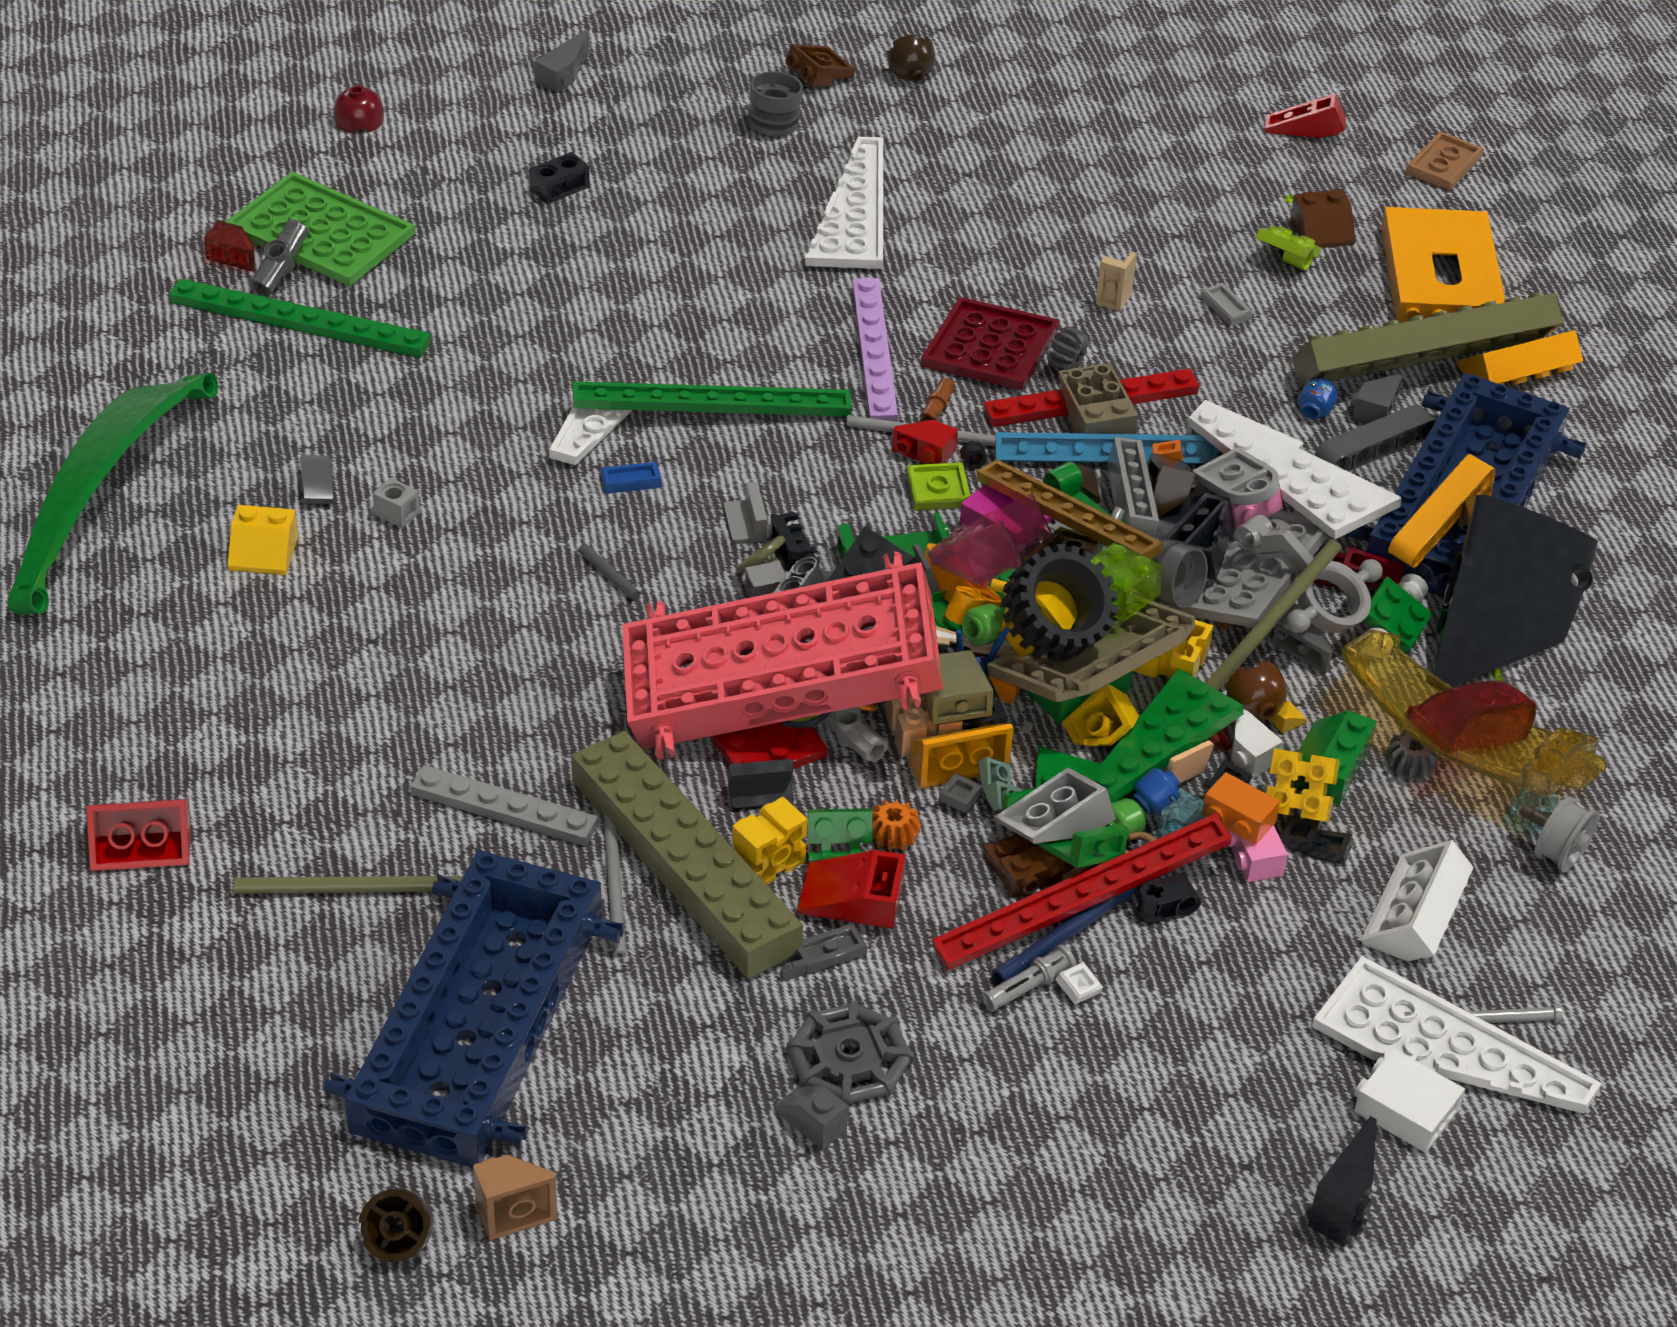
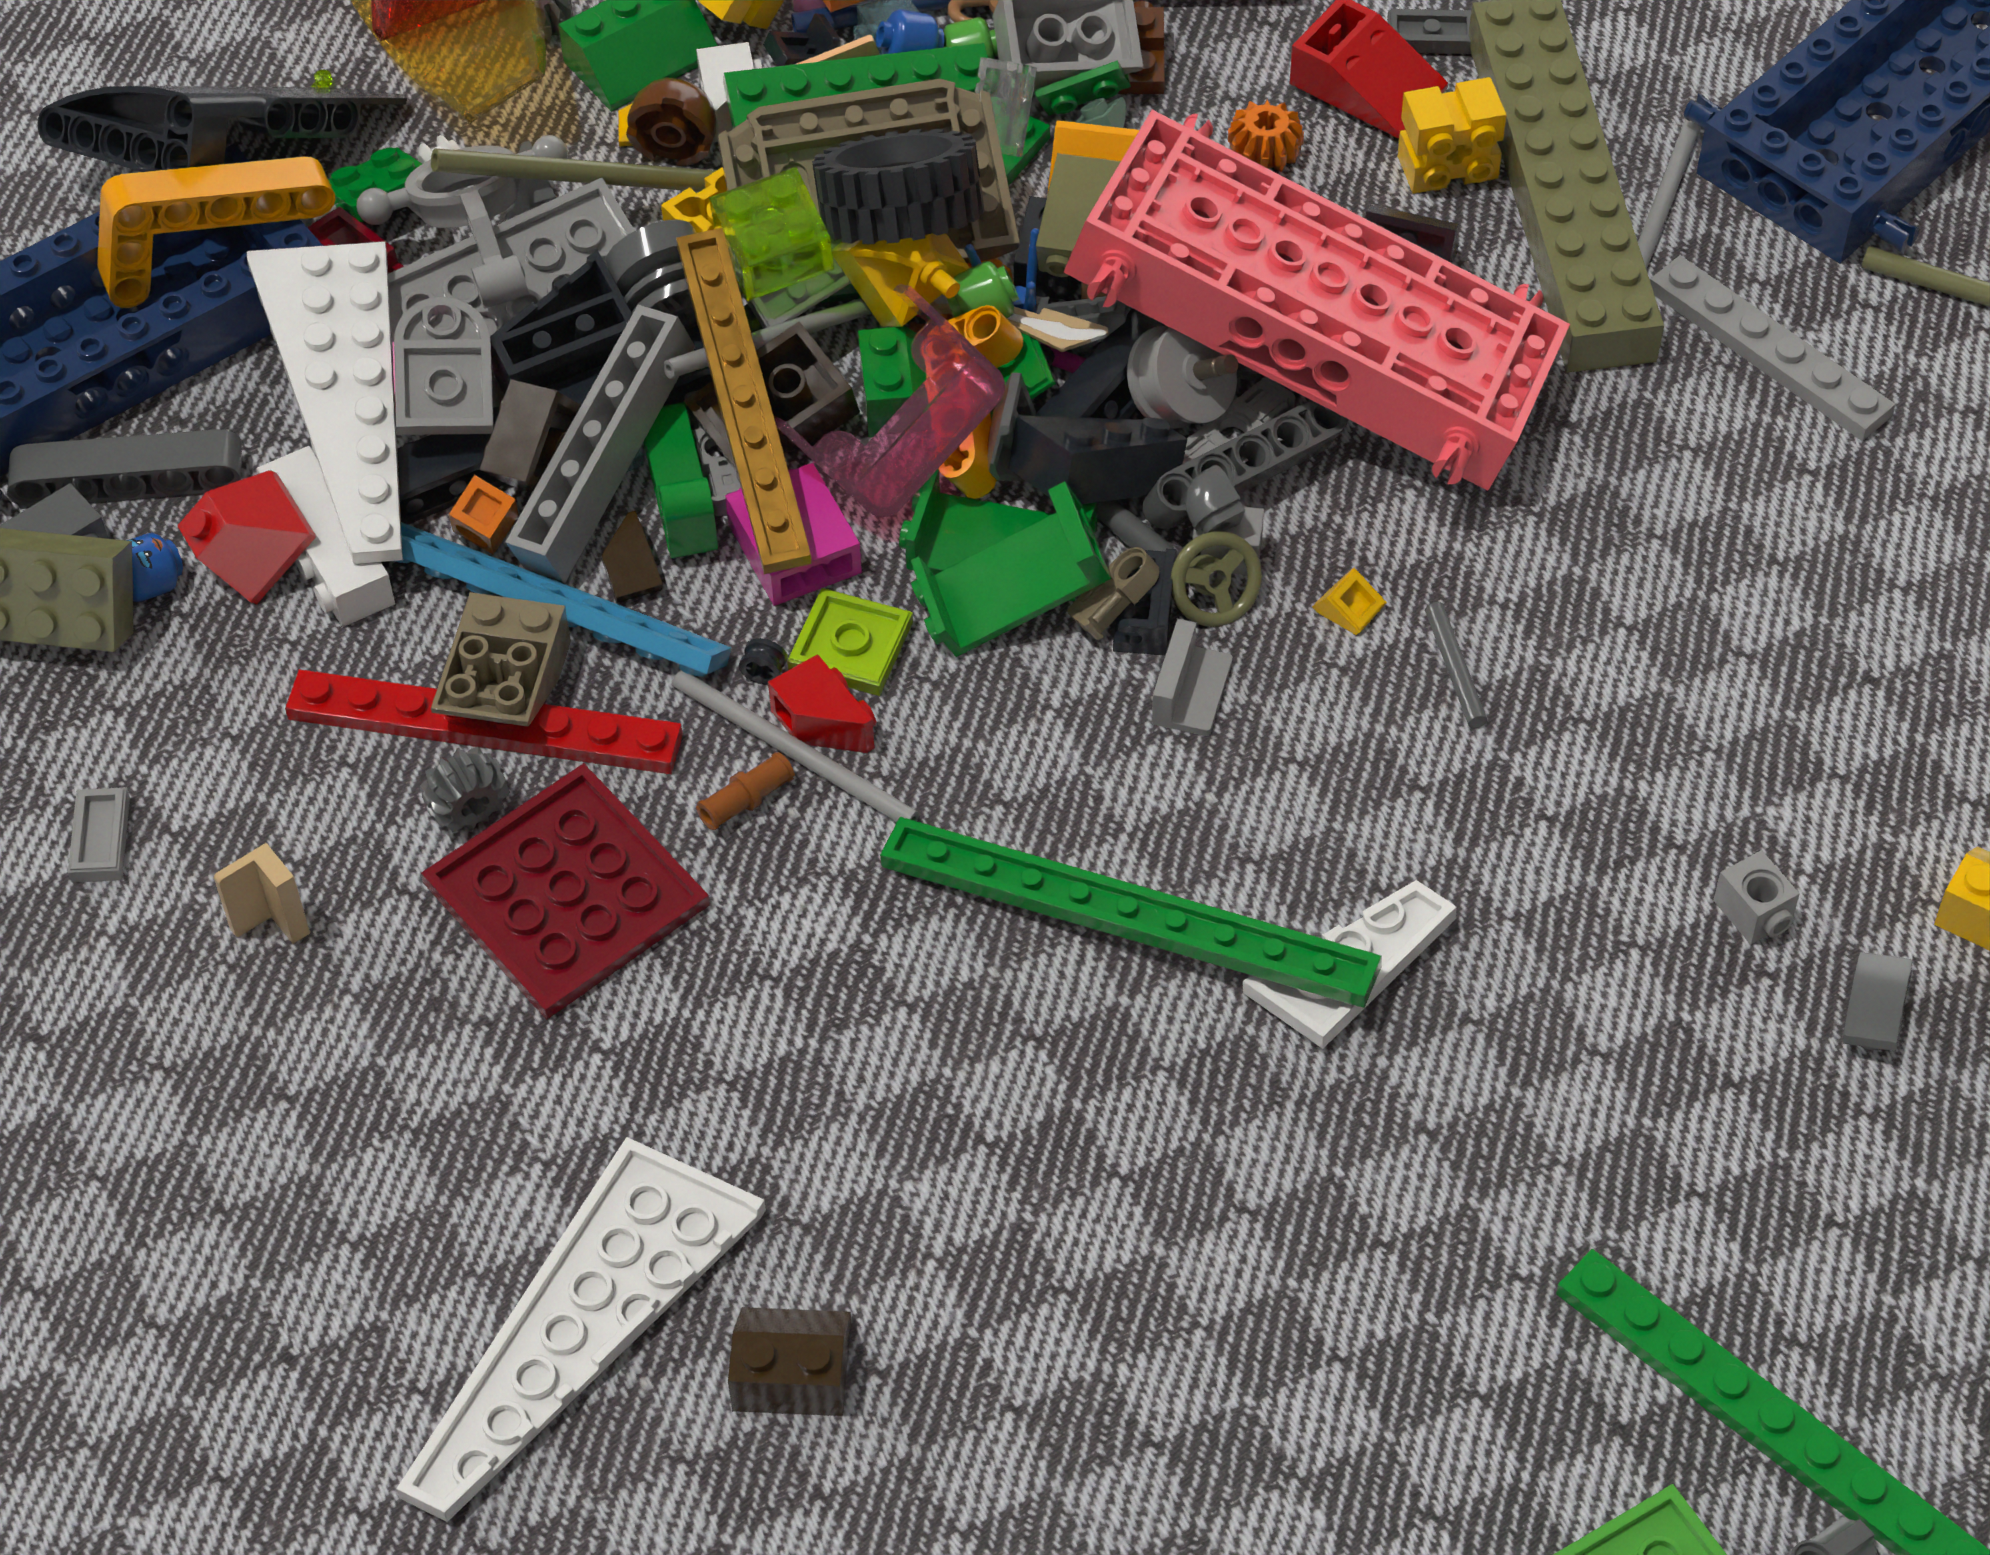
camera: 150 degrees left, 10 degrees up
(631, 477) = (1335, 833): blue tile -> none
(683, 580) = (1350, 602): none -> yellow slope
(755, 216) = (789, 1361): none -> dark brown slope
(778, 561) = (1213, 502): none -> dark grey piece
(811, 530) = (1102, 604): none -> dark tan piece
(838, 826) = (1367, 129): green plate -> none
(874, 349) = (766, 963): lavender plate -> none
(889, 515) = (1012, 578): none -> green panel
(1058, 743) = (1011, 98): none -> clear brick
(1282, 414) = (248, 533): none -> red slope

